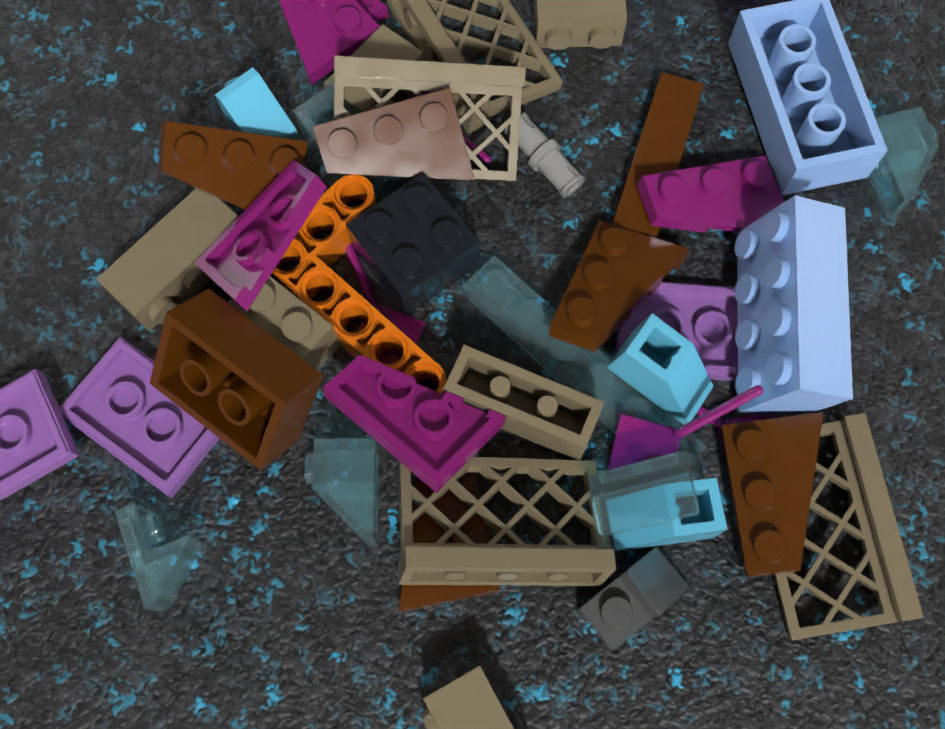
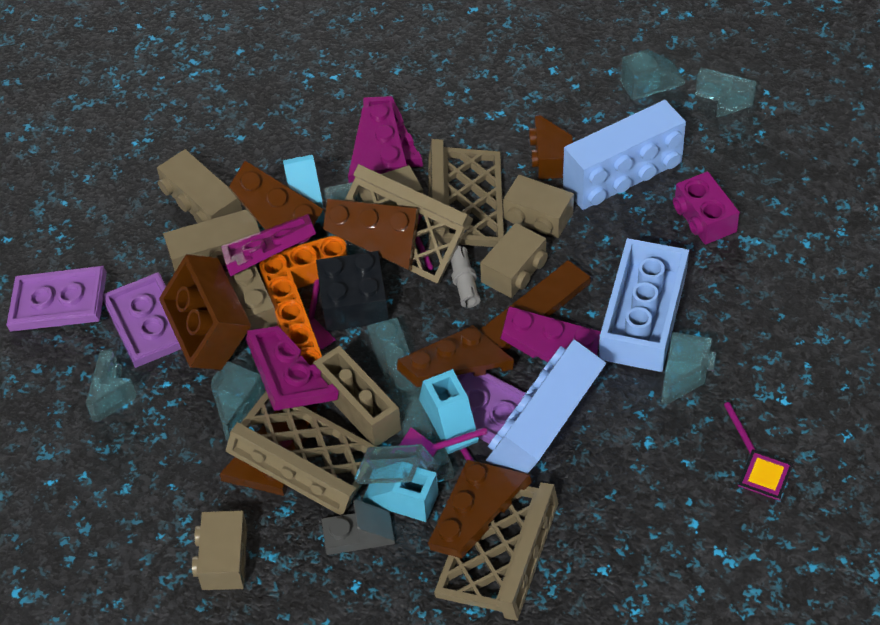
camera: 30 degrees right, 20 degrees down
(101, 185) = (196, 188): none -> dark tan brick
(597, 103) = (513, 260): none -> dark tan brick

